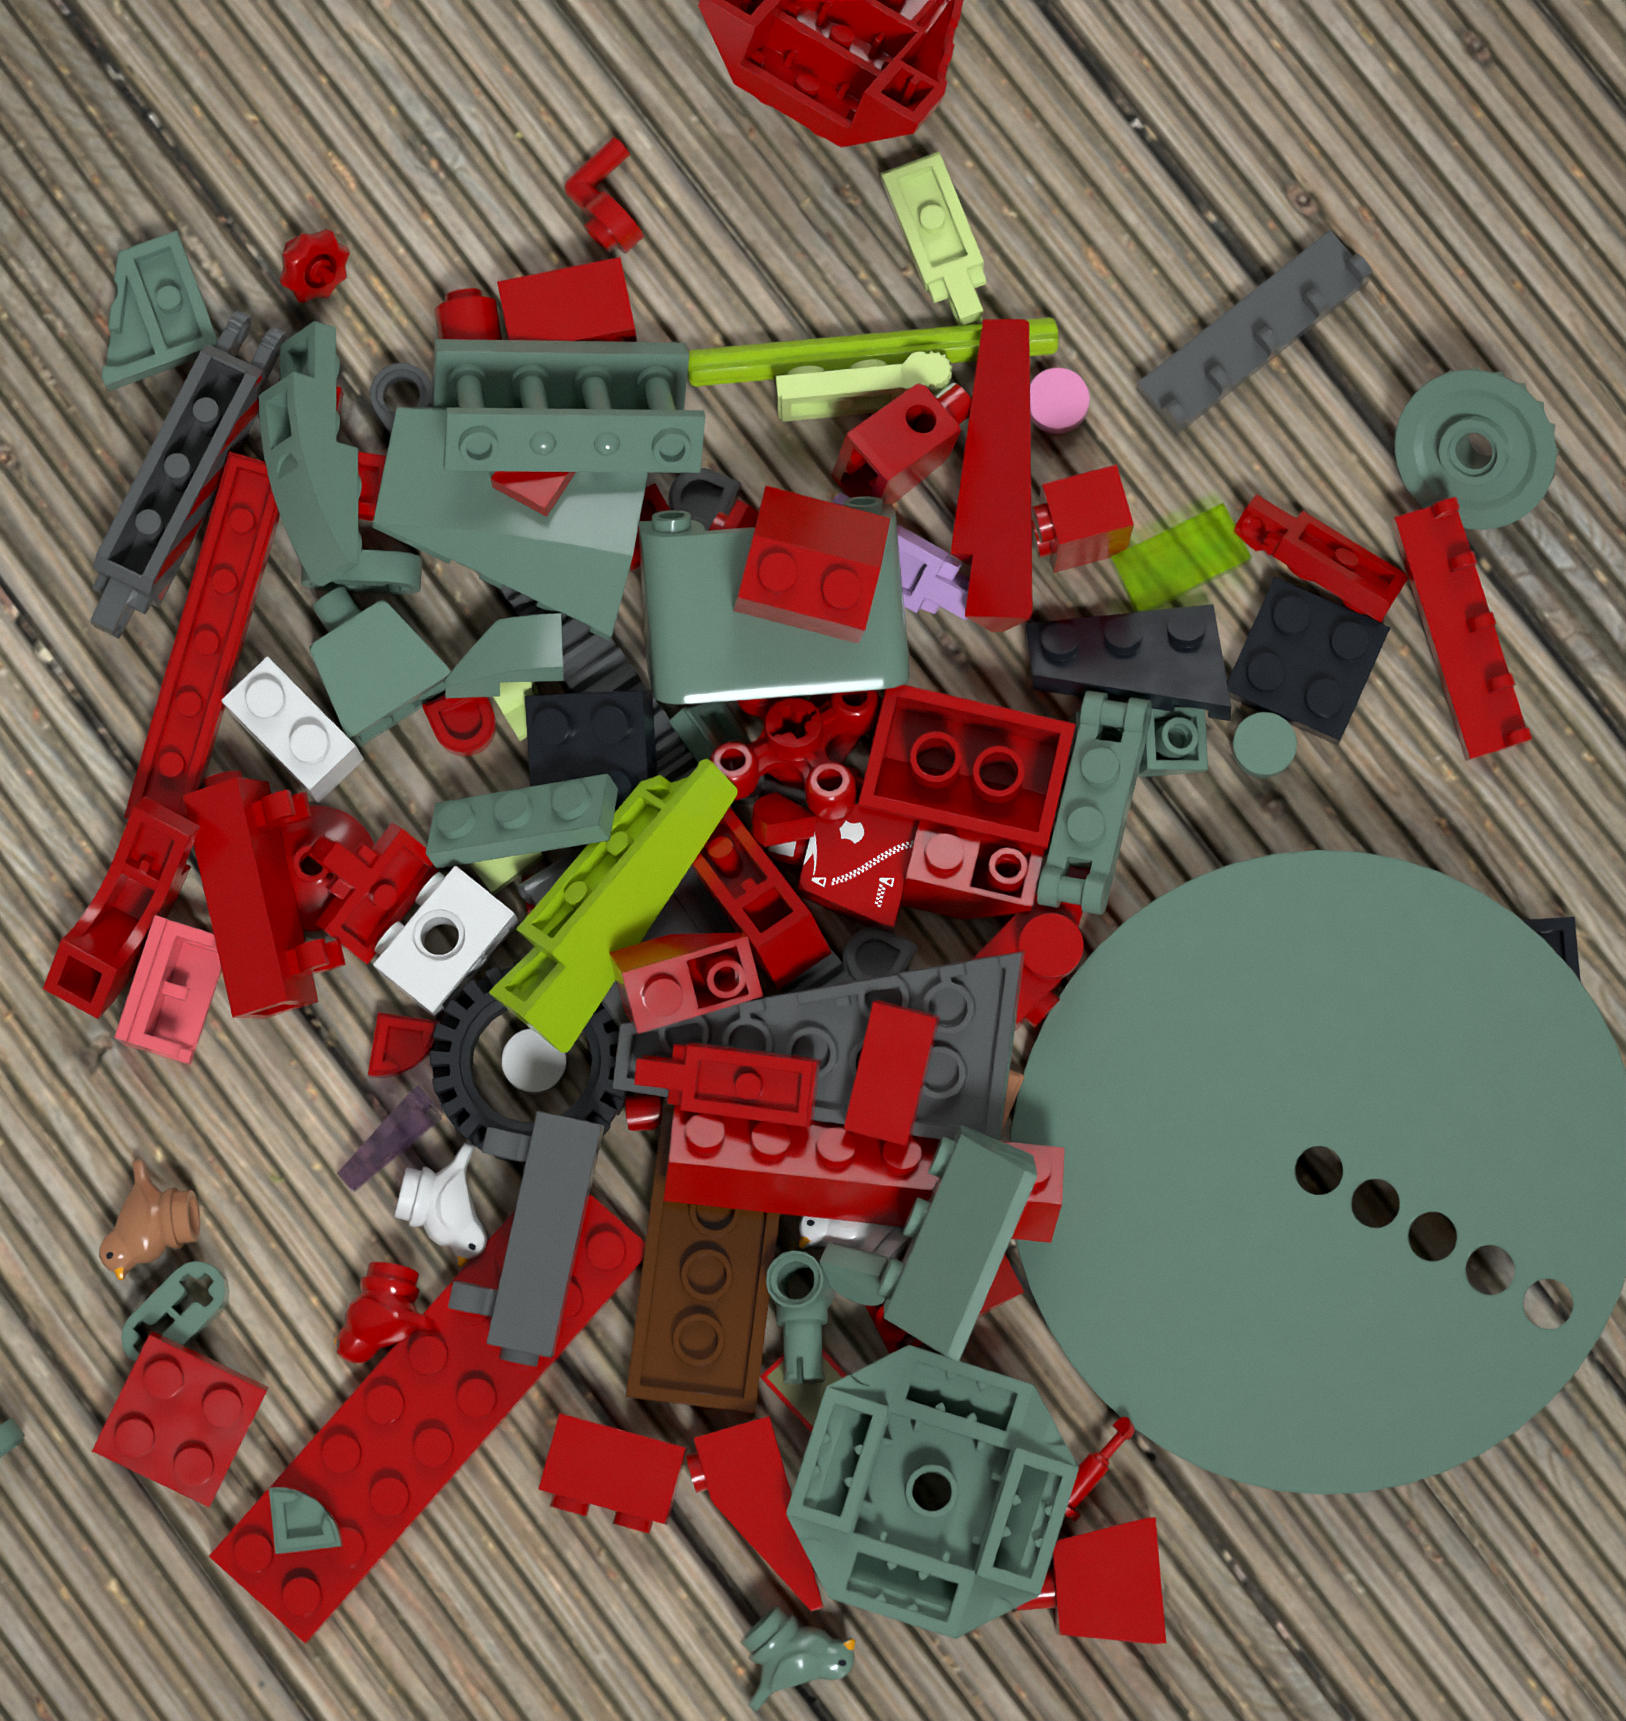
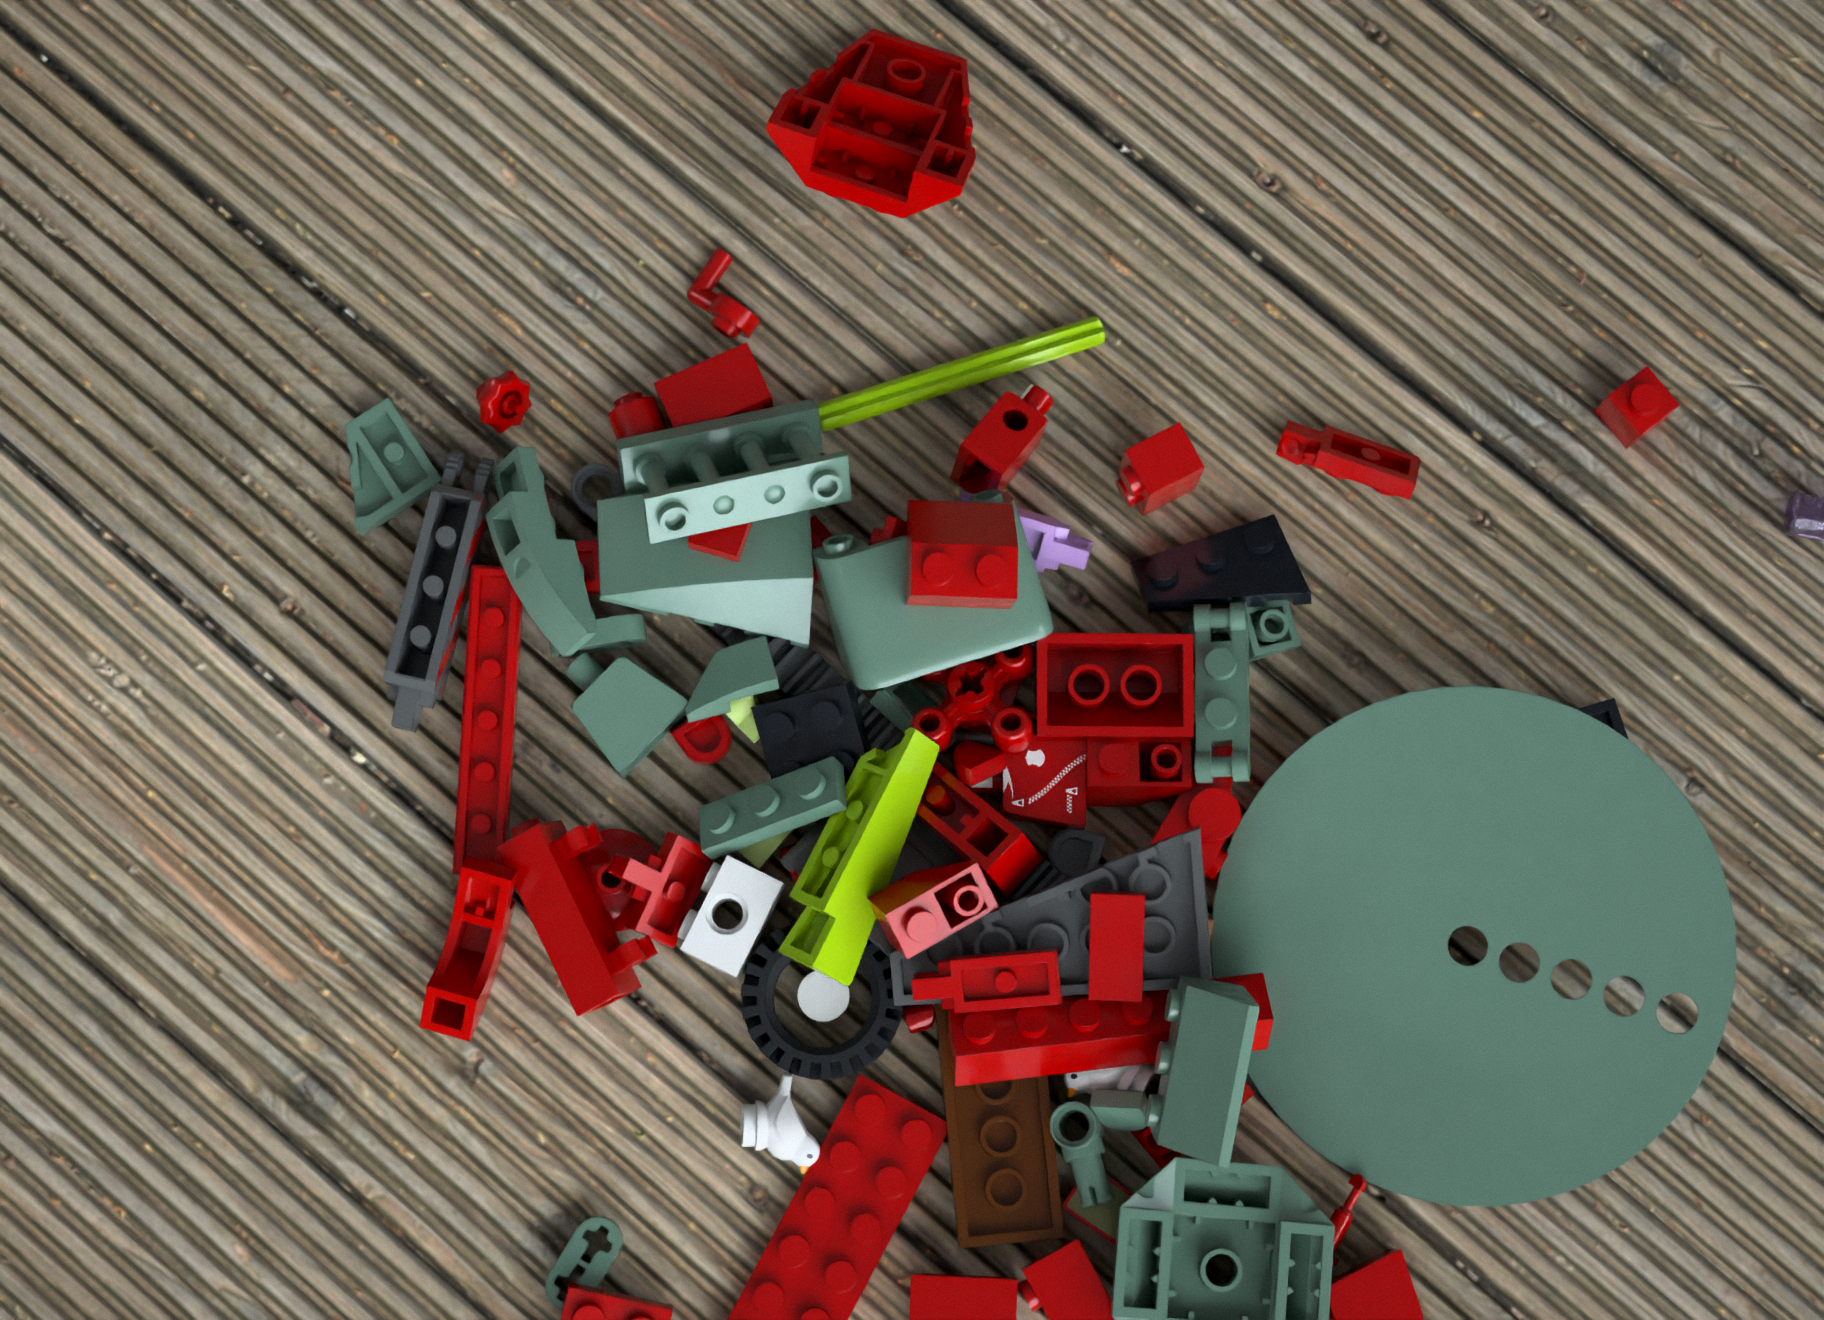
camera: 15 degrees left, 0 degrees up
(149, 1224) = (547, 1196): nougat animal -> none
(171, 991) = (522, 1005): coral hinge -> none
(292, 729) = (571, 774): white brick -> none
(381, 1312) = (749, 1225): red animal -> none
(397, 1132) = (724, 1085): clear purple tile -> none
(400, 1044) = (714, 1005): red tile -> none
(543, 1236) = (867, 1137): dark grey brick -> none
(703, 495) = (854, 517): dark grey tile -> none
(861, 389) = (958, 405): yellowish green hinge -> none
(937, 234) = (990, 270): yellowish green hinge -> none
(995, 483) = (1084, 454): red wedge -> none
(1058, 400) = (1114, 380): bright pink tile -> none
(1180, 559) = (1239, 484): clear neon green tile -> none
(1254, 332) = (1255, 292): dark grey hinge -> none
(1264, 745) = (1339, 616): sand green tile -> none
(1306, 660) = (1357, 542): black plate -> none
(1441, 463) = (1446, 376): sand green gear -> none
(1460, 629) = (1471, 491): red hinge -> none

